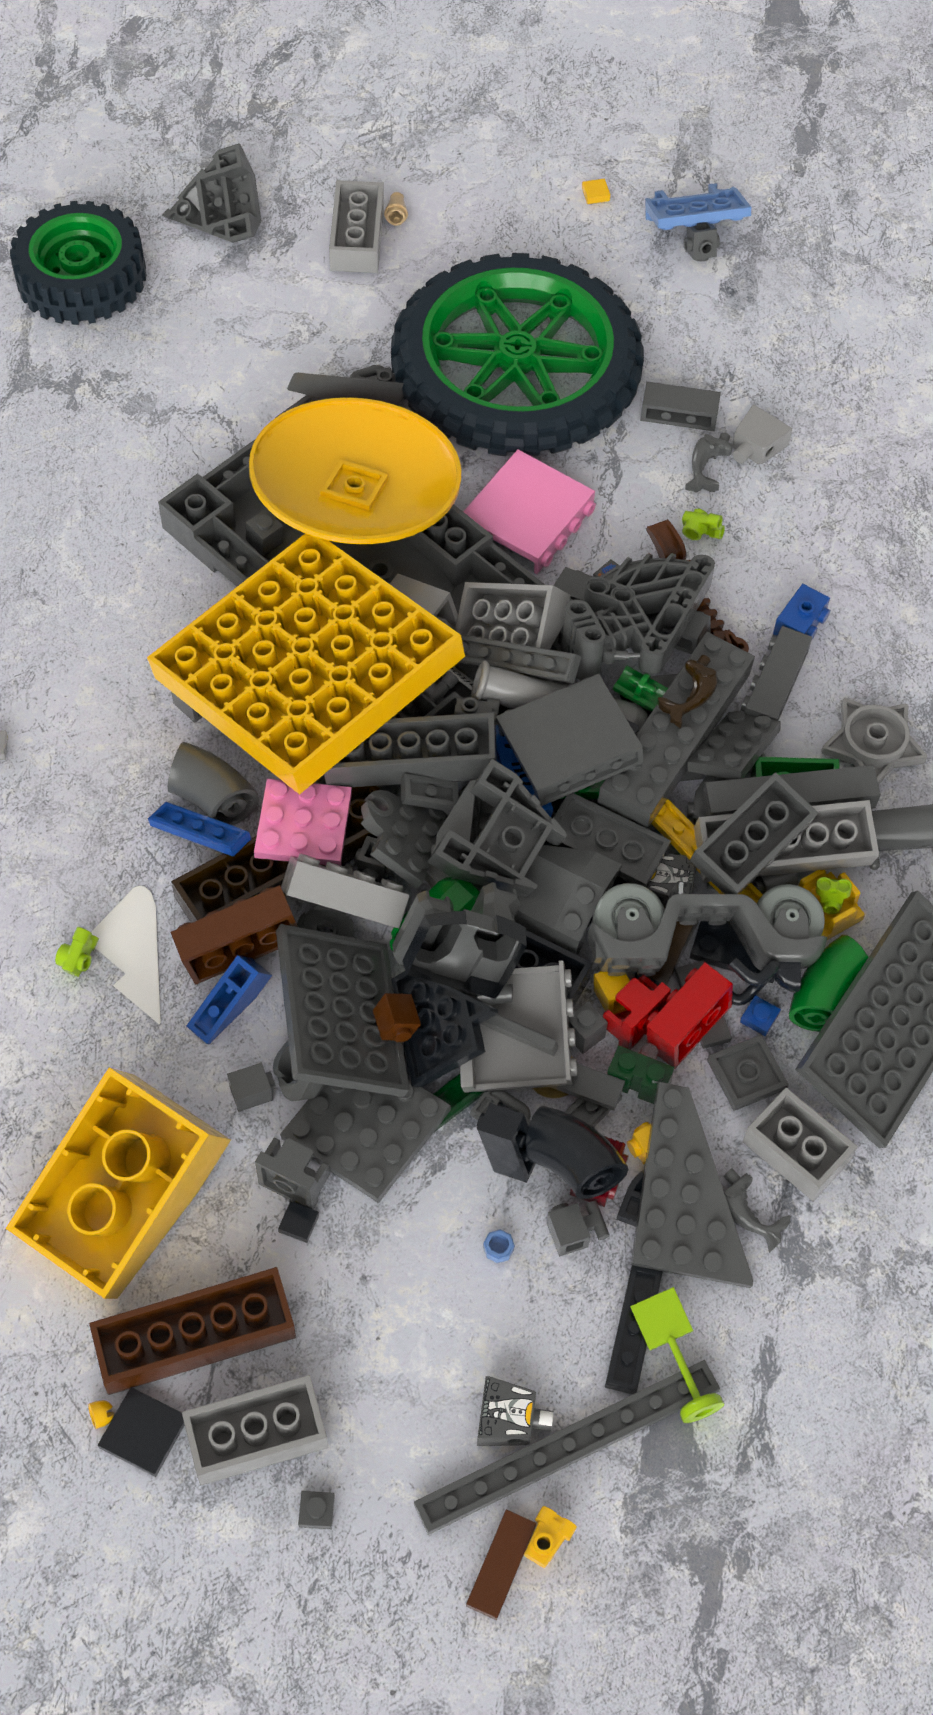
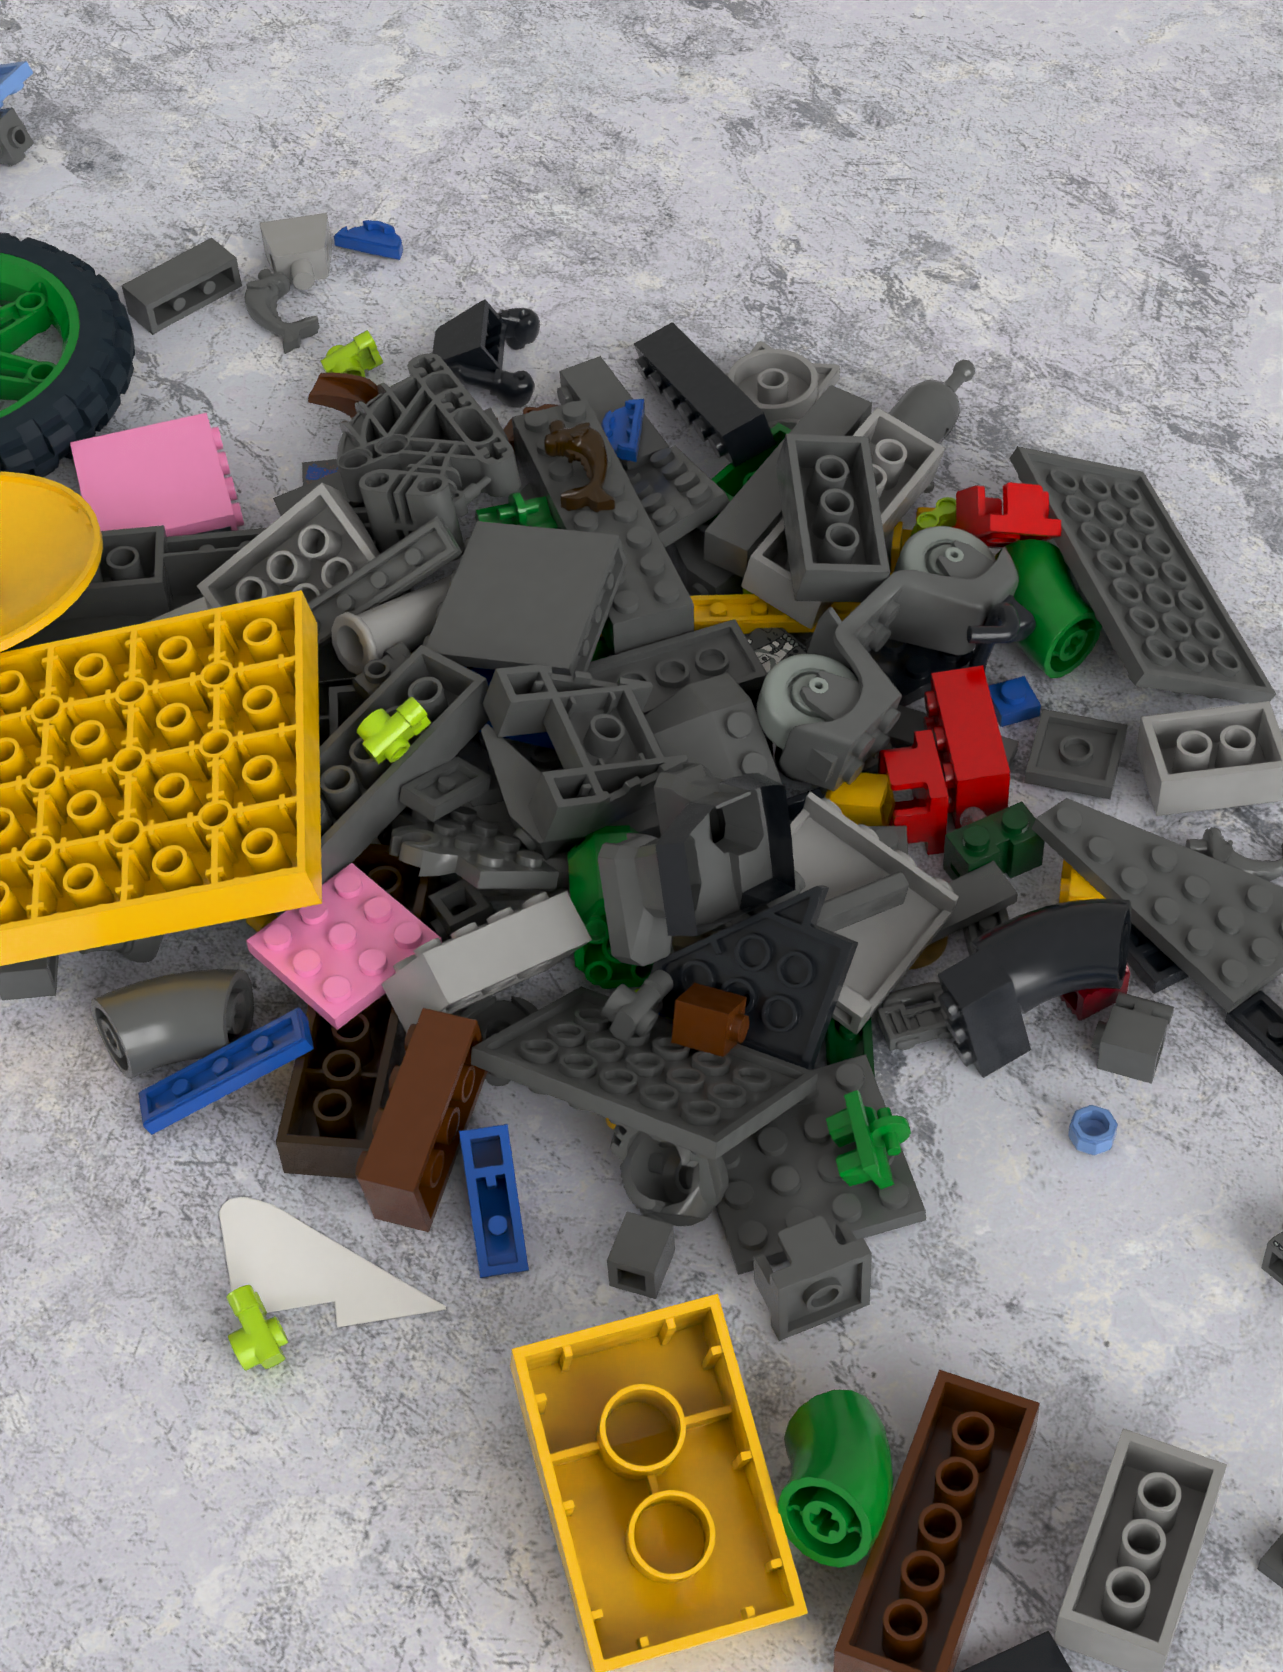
camera: 45 degrees left, 10 degrees down
(182, 1261) = (837, 1478): none -> green brick
(298, 1222) = (875, 1325): black tile -> none
(371, 979) = (639, 1010): none -> dark grey plate
(387, 1143) = (871, 1137): none -> green hips
(417, 742) = (389, 735): none -> lime plate
(758, 573) = (475, 349): none -> black torso
(762, 688) = (624, 429): none -> blue plate
(804, 462) = (371, 238): none -> blue plate
(804, 611) = (554, 346): blue brick -> none
(825, 707) = (703, 395): none -> black brick
(857, 920) = (1023, 515): none -> red panel

